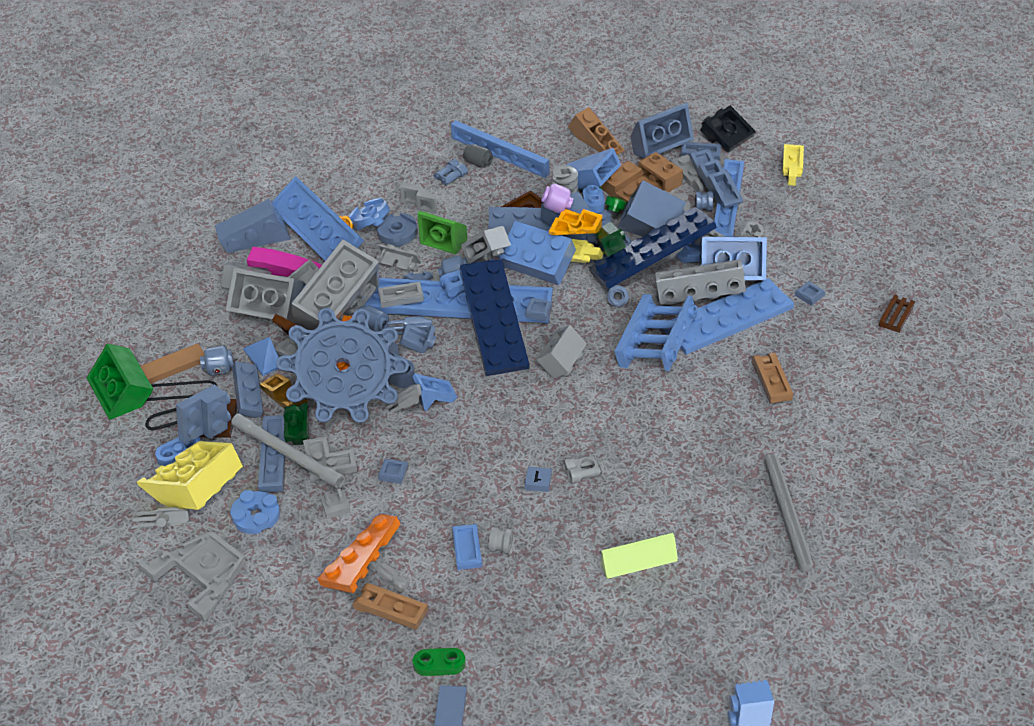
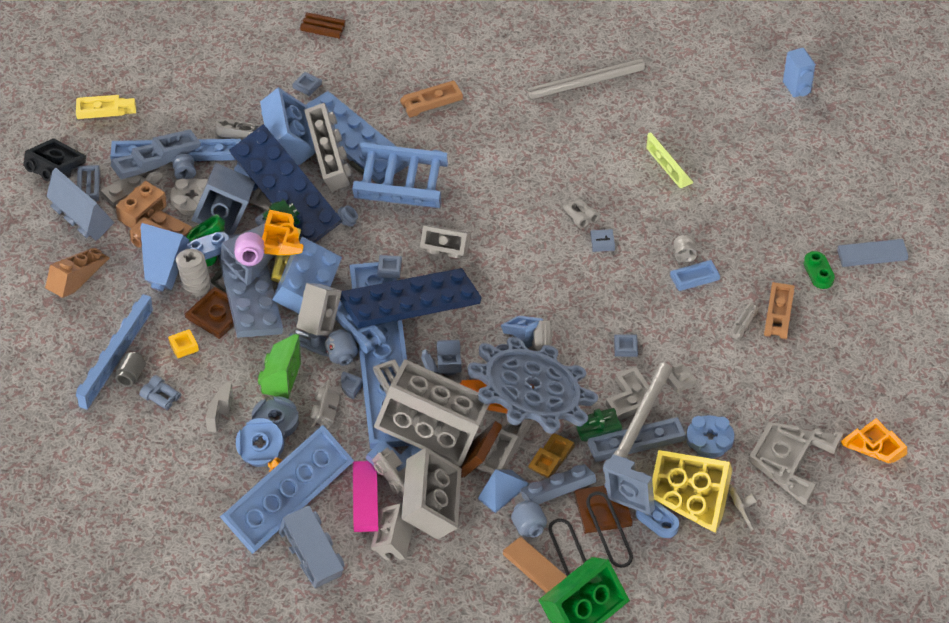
camera: 105 degrees left, 5 degrees up
(175, 652) = (884, 446): none -> light orange slope
(356, 557) = (741, 341): orange wing -> none
(496, 186) = (183, 343): none -> yellow plate

